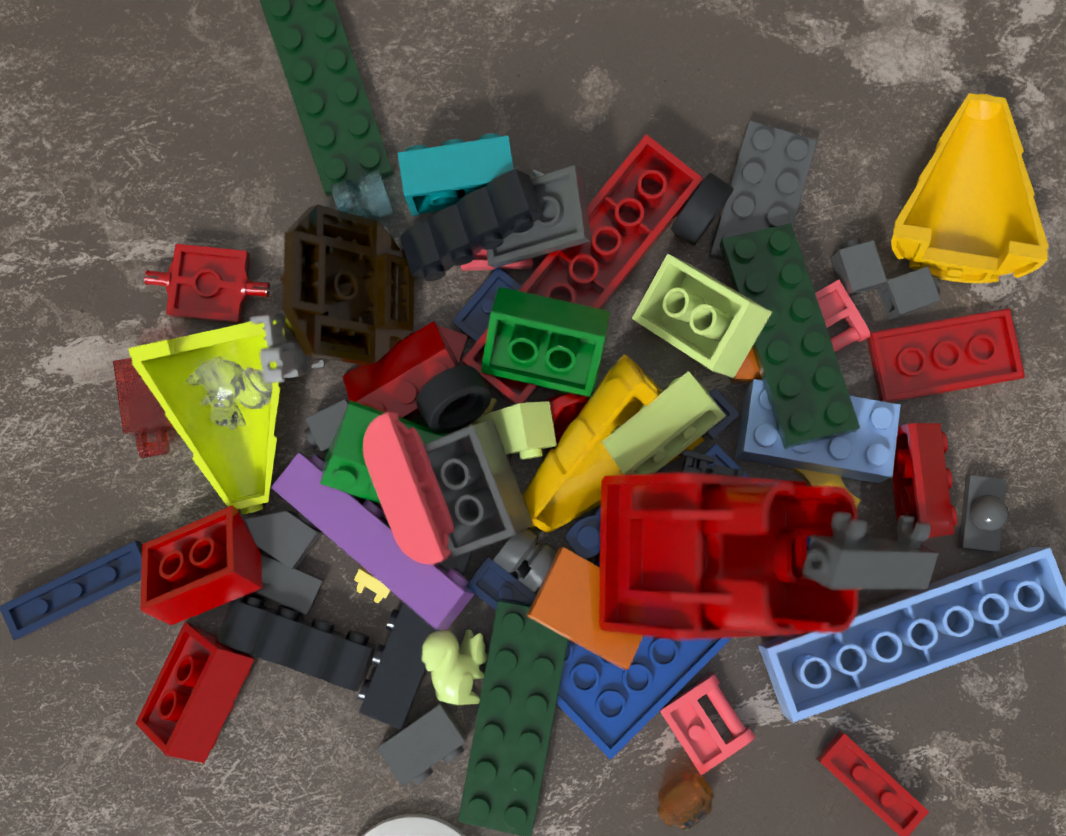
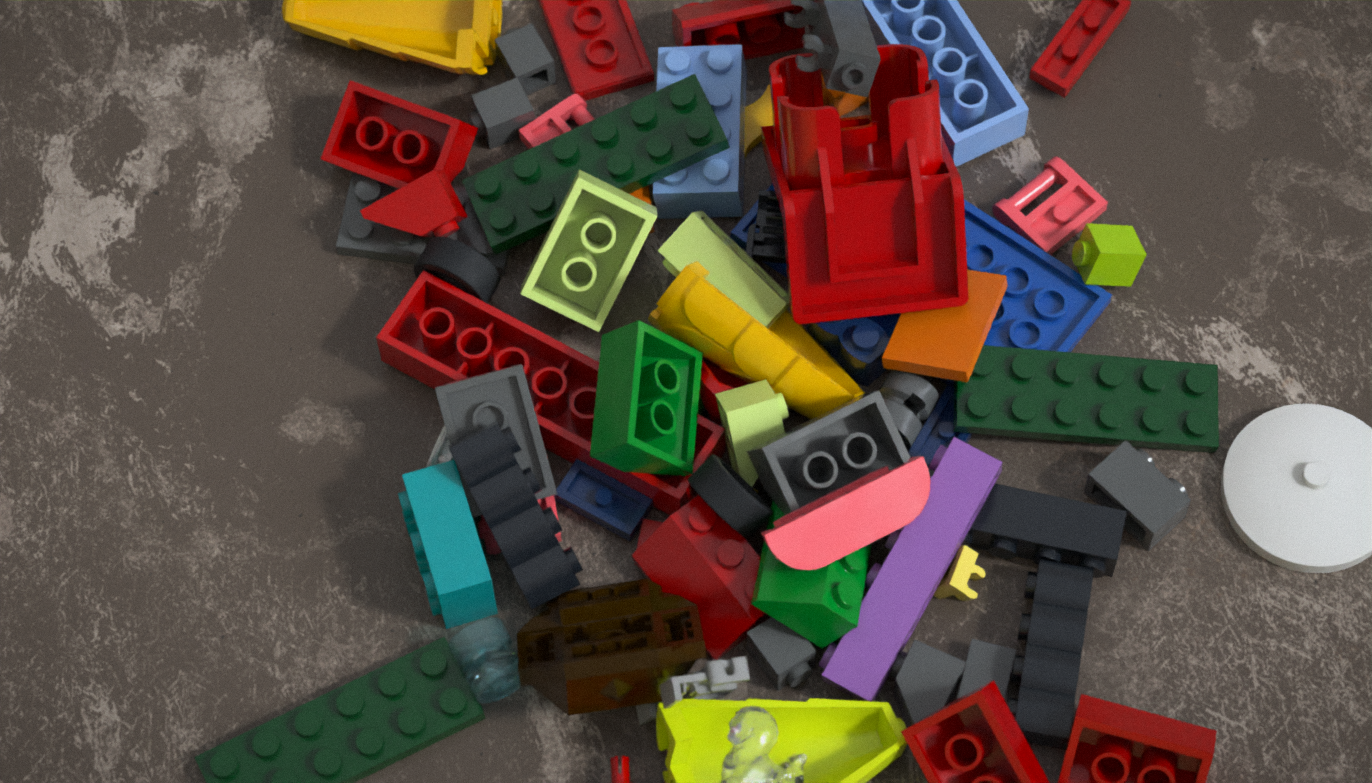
camera: 95 degrees left, 20 degrees down
(454, 668) = (1043, 465): yellowish green animal -> none
(646, 765) = (1108, 255): none -> lime brick
(685, 800) = (1142, 210): clear orange head -> none
(763, 183) = (421, 207): none -> red slope
(838, 176) = (395, 138): none -> red slope

